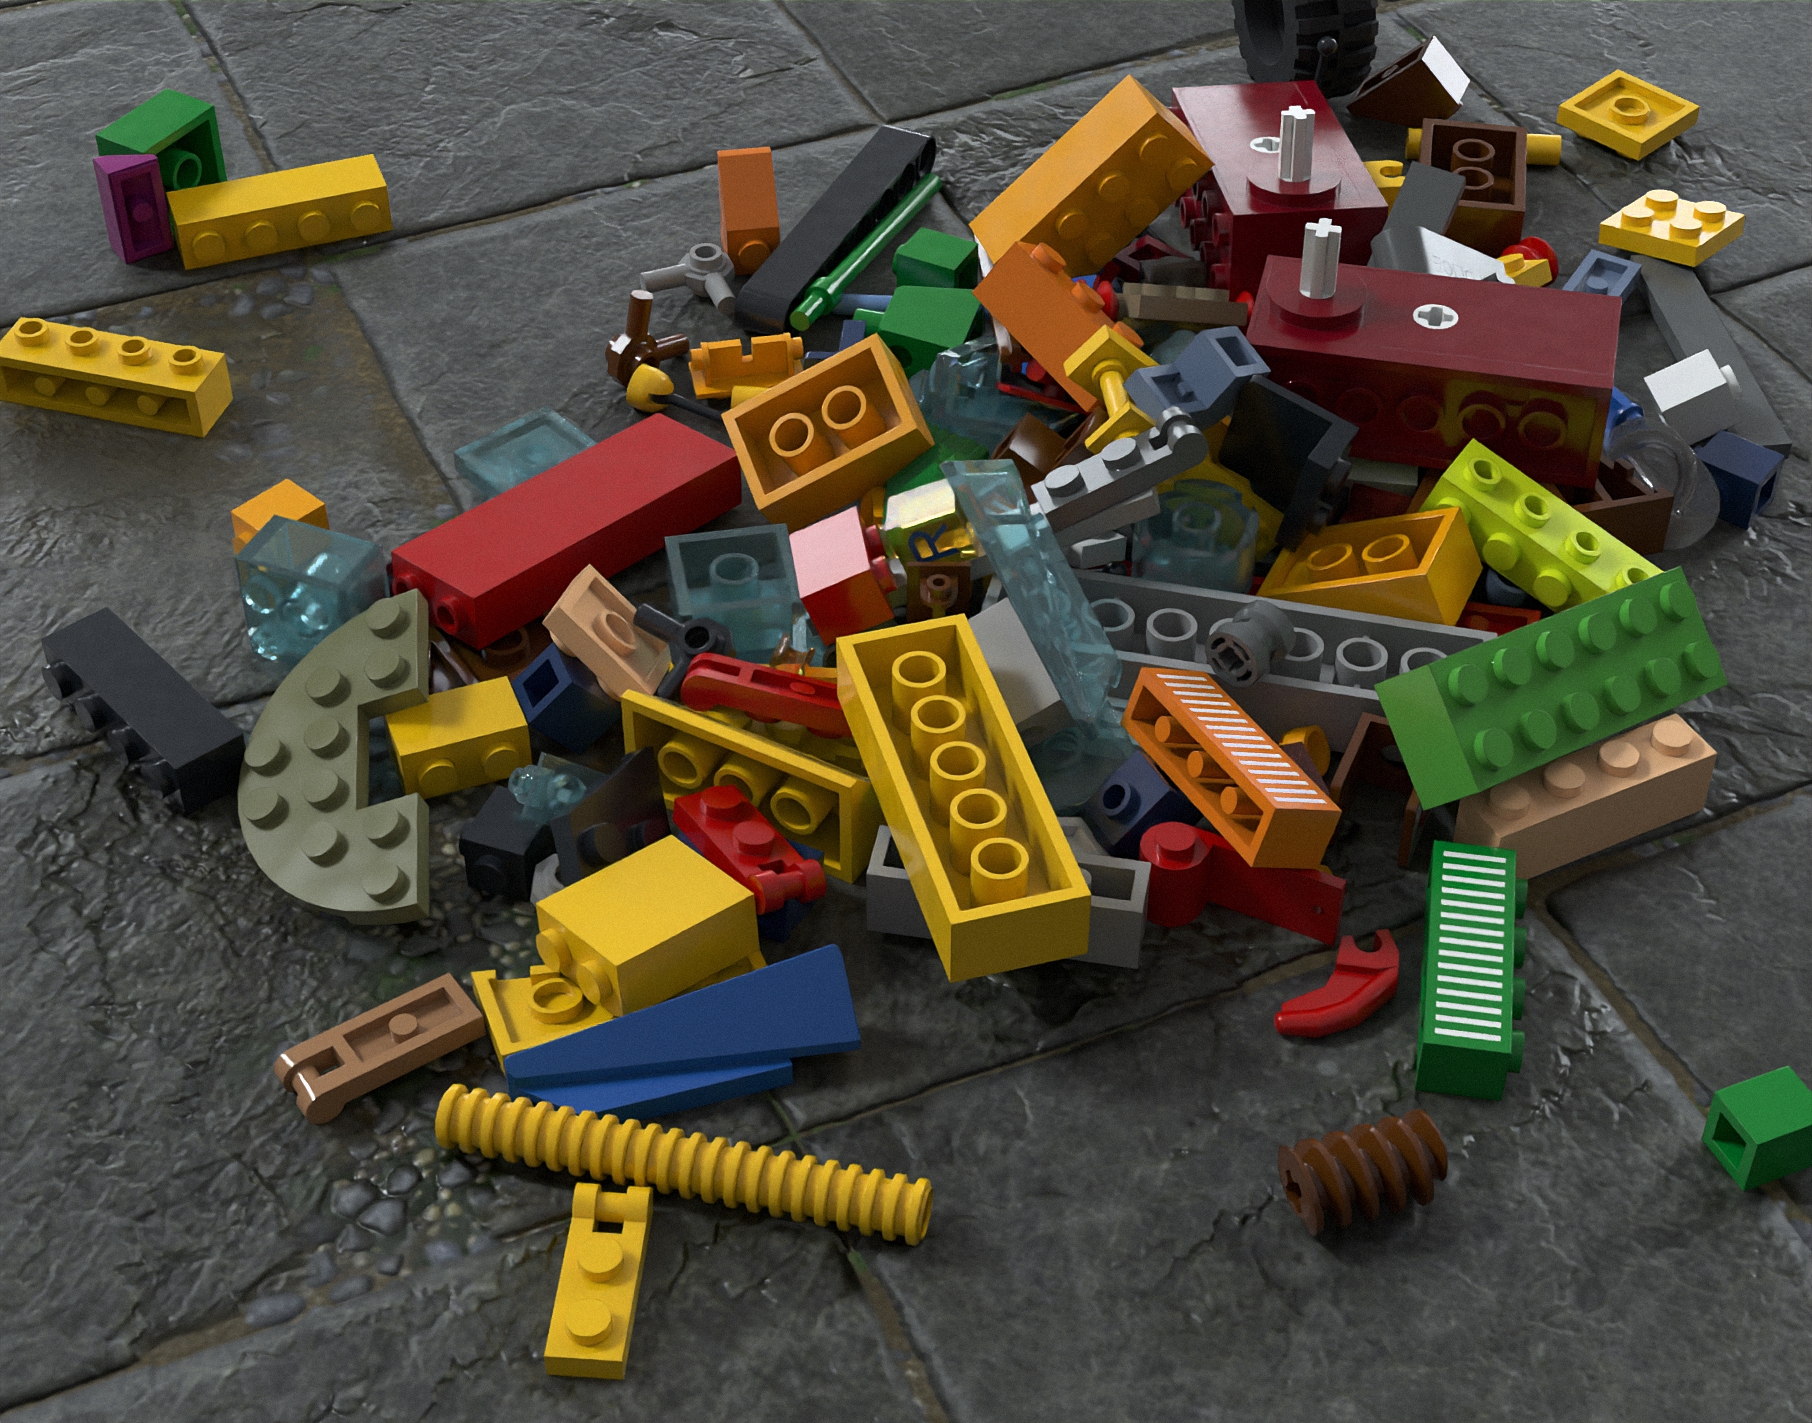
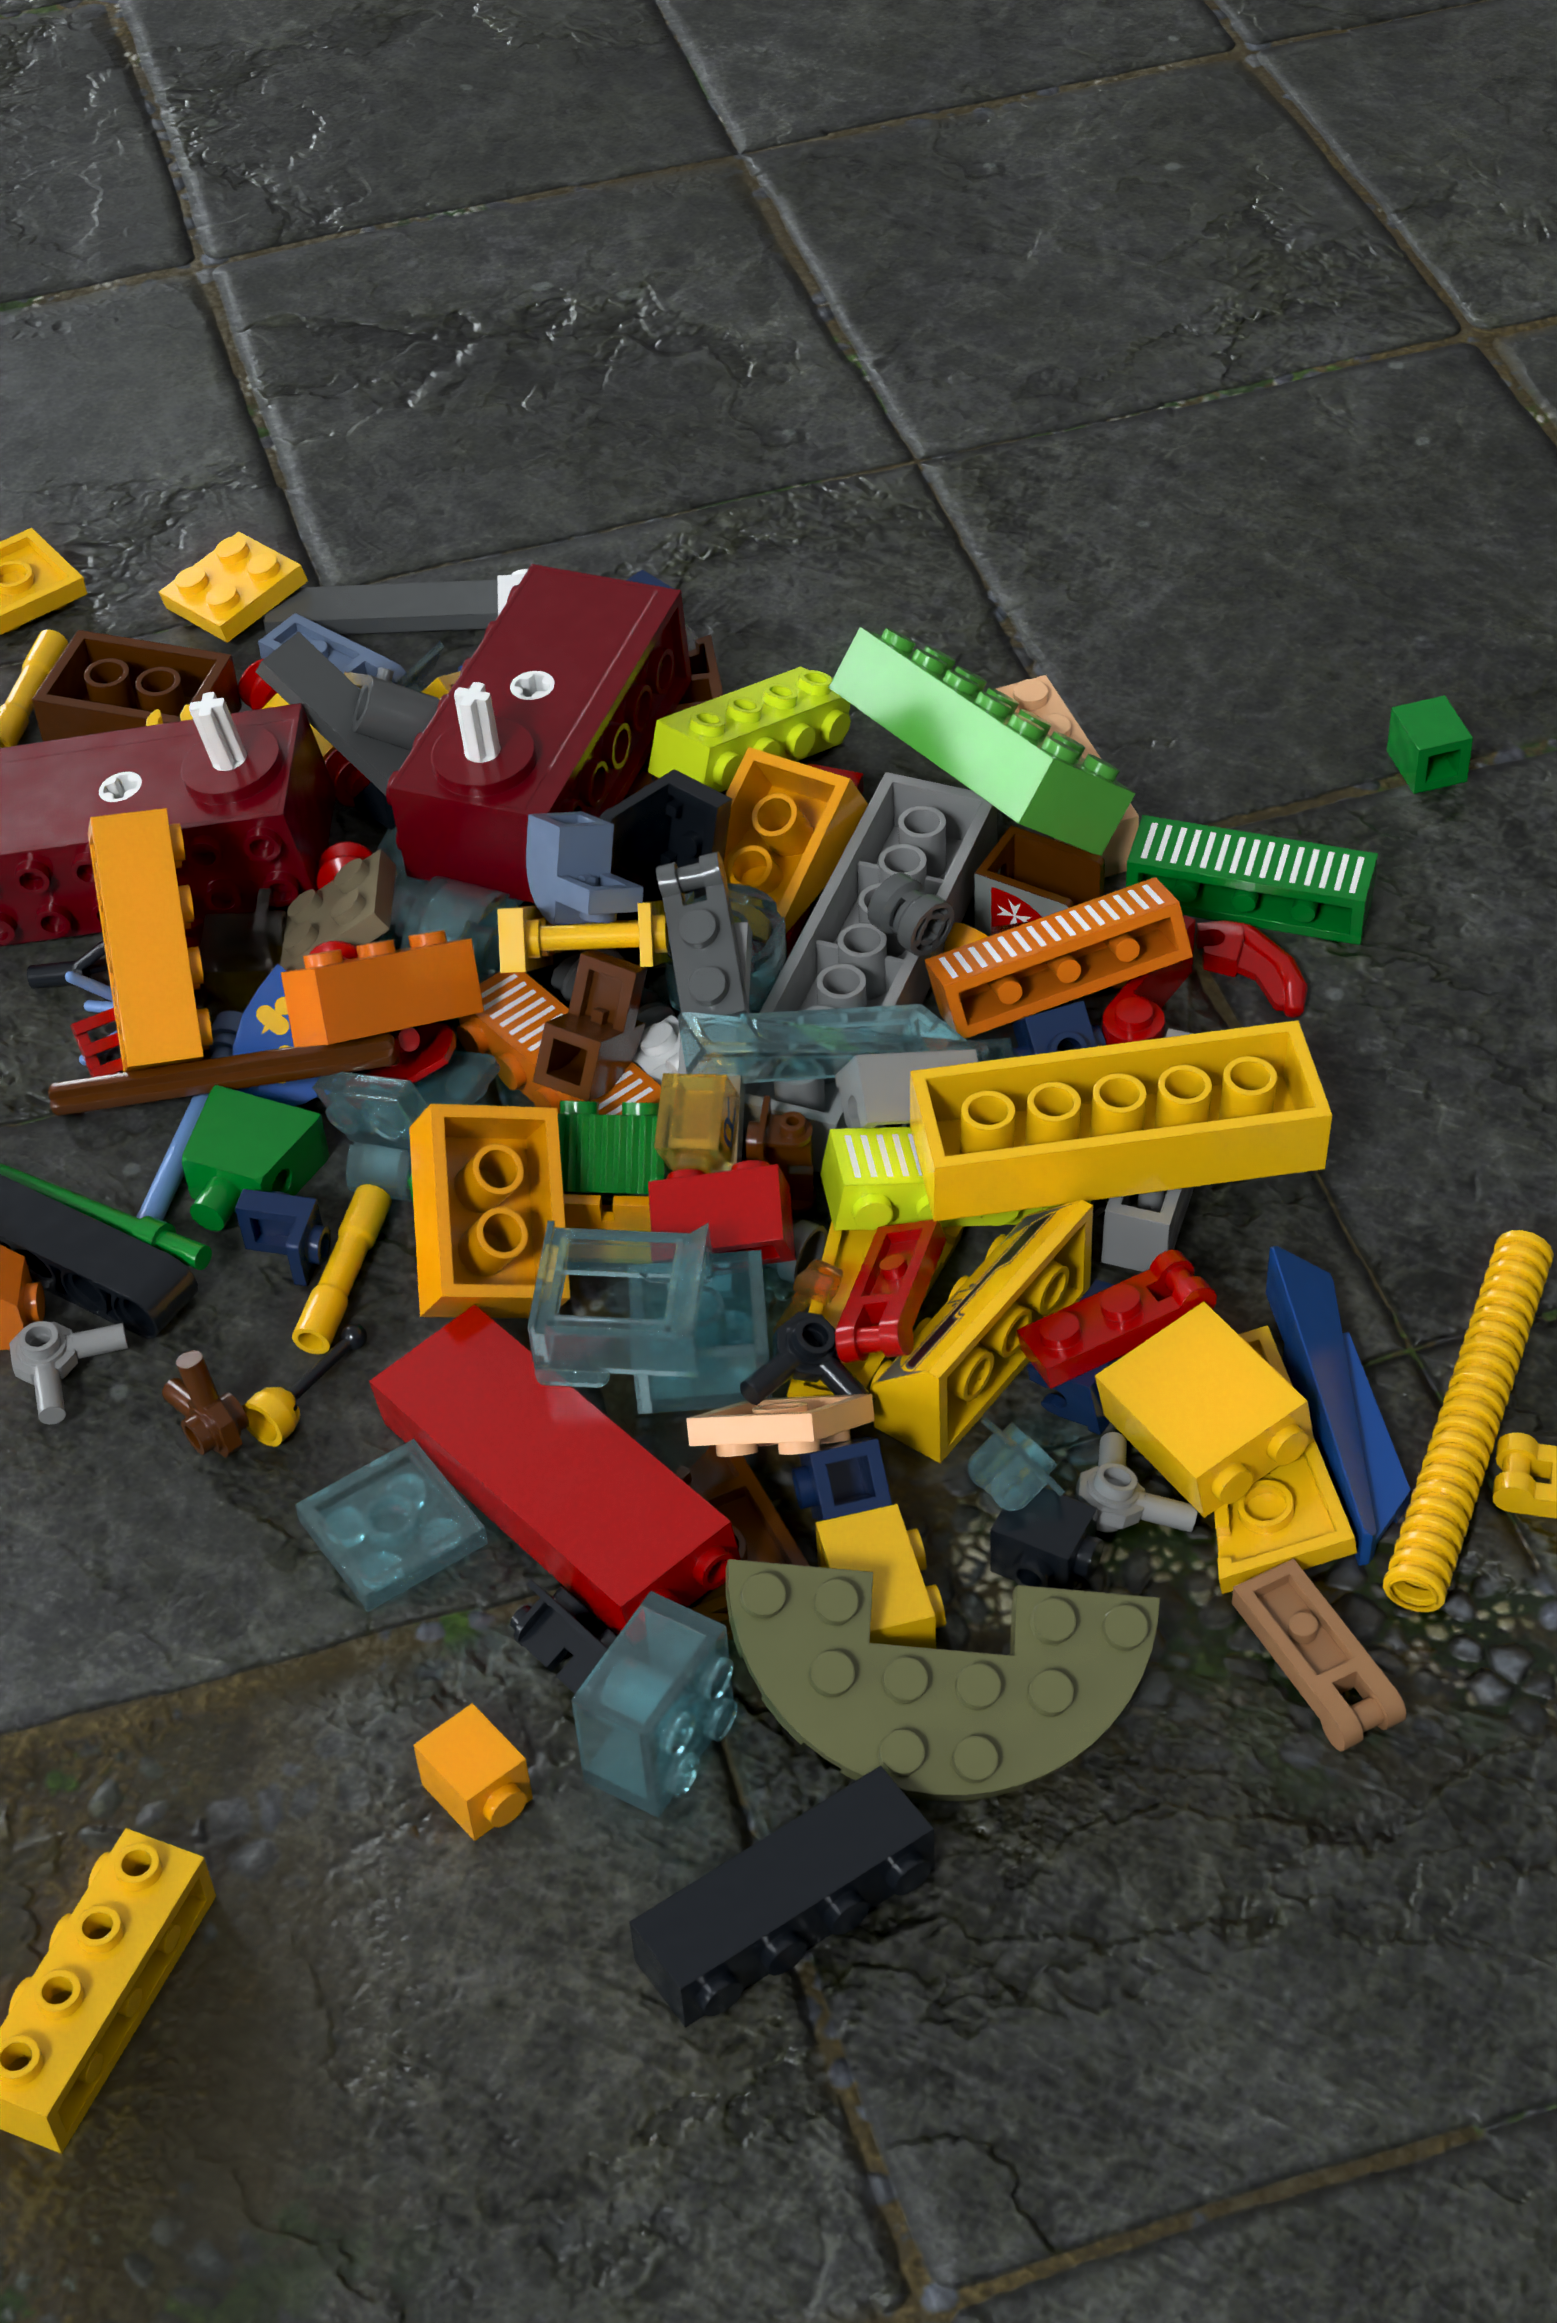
camera: 80 degrees left, 5 degrees up
(612, 818) = (1066, 1423): black wing -> none
(706, 462) = (589, 1348): none -> clear light blue piece
(720, 364) = (257, 1322): light orange hinge -> none
(936, 261) = (122, 1140): green brick -> none
(1361, 1168) = (1484, 966): reddish brown piece -> none

